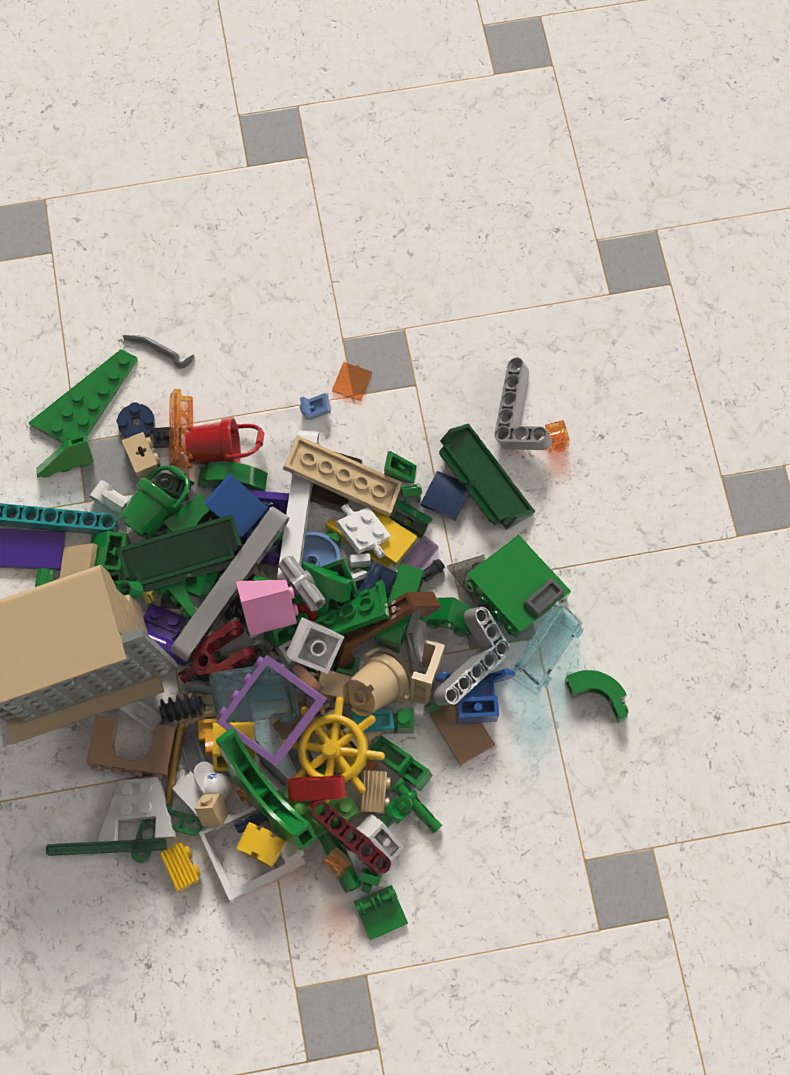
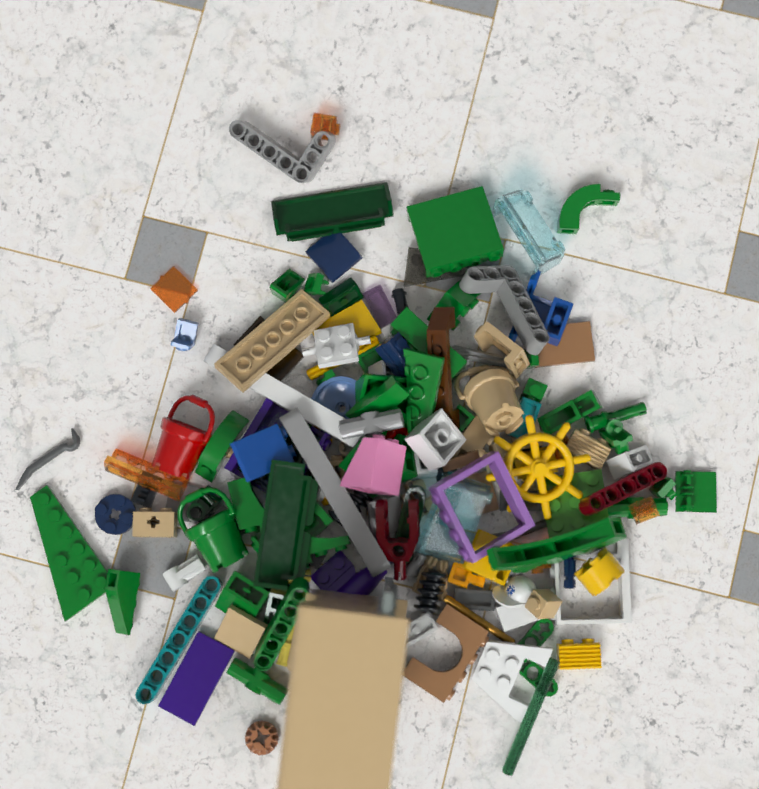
camera: 65 degrees left, 10 degrees up
(316, 788) = (570, 497): red beam -> none
(360, 560) = (363, 362): white tile -> none
(544, 597) = (480, 211): dark grey tile -> none

